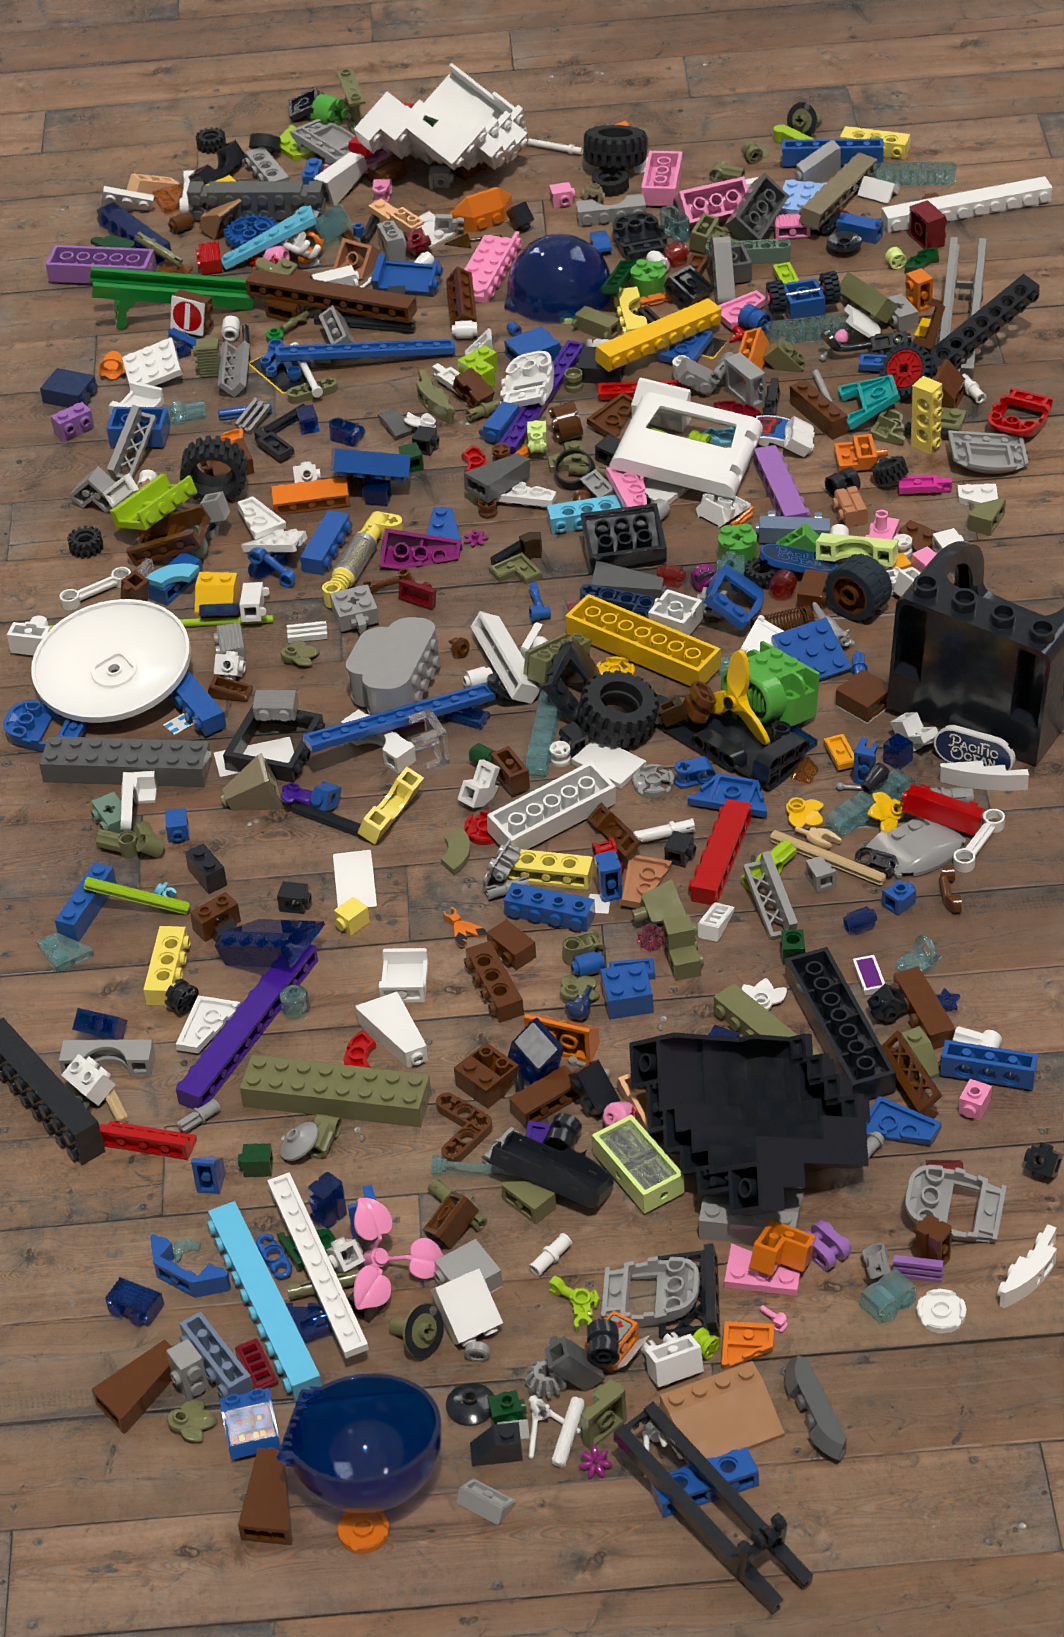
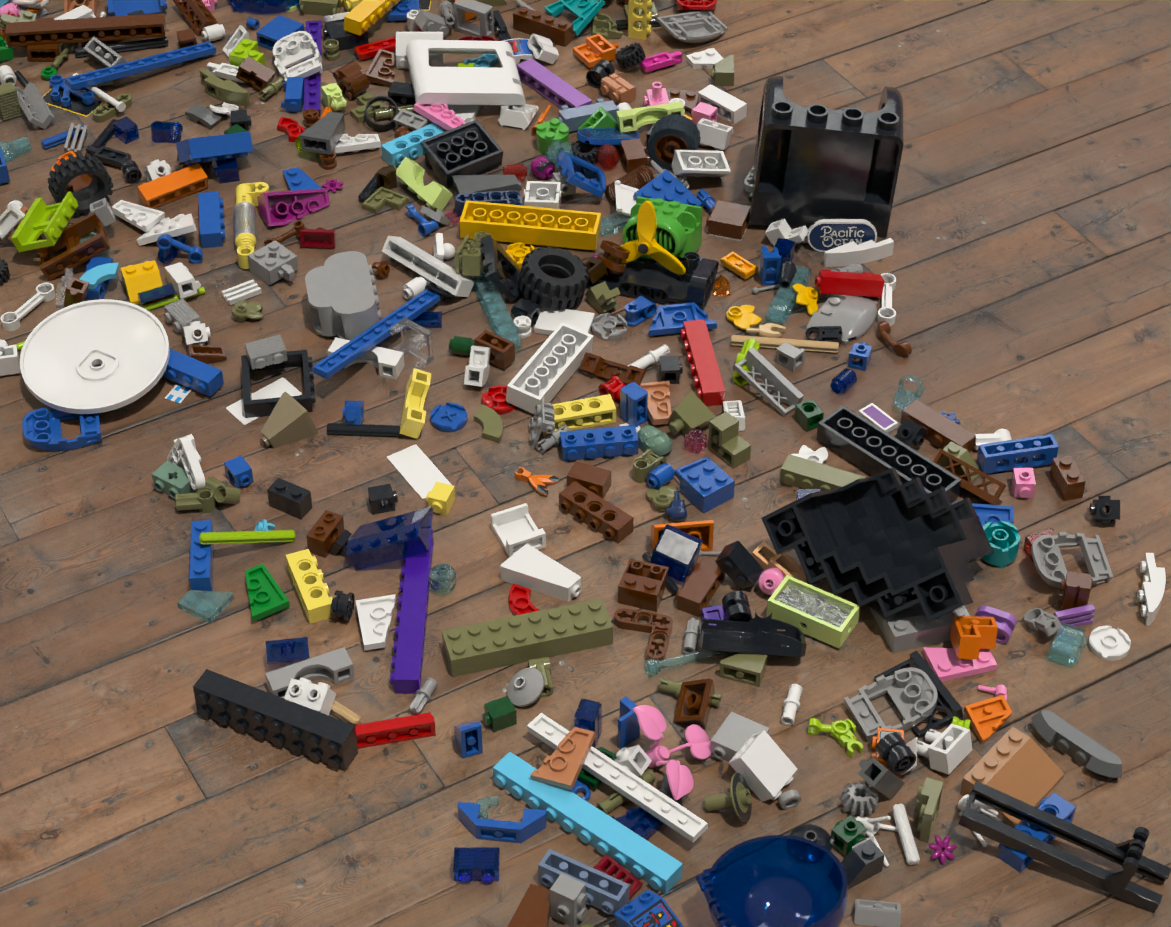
camera: 30 degrees left, 0 degrees up
(105, 759) = (155, 434): dark grey brick -> none
(121, 959) = (264, 593): none -> green wing
(272, 1233) = (567, 760): none -> nougat wing
(283, 467) = (131, 171): none -> black wheel
(293, 792) = (323, 419): dark purple plate -> none
(420, 831) = (448, 417): none -> blue tile
(432, 328) = (186, 38): none -> reddish brown panel
(555, 602) = (438, 215): none -> light grey plate
(565, 576) = (412, 174): none -> yellowish green arch
(609, 923) = (653, 439): none -> sand green piece
(663, 745) = (602, 298): none -> olive brick
(868, 618) = (700, 163): none -> white slope
(892, 1158) = (1004, 542): none -> teal brick
(1028, 1110) = (1067, 478): none -> reddish brown brick

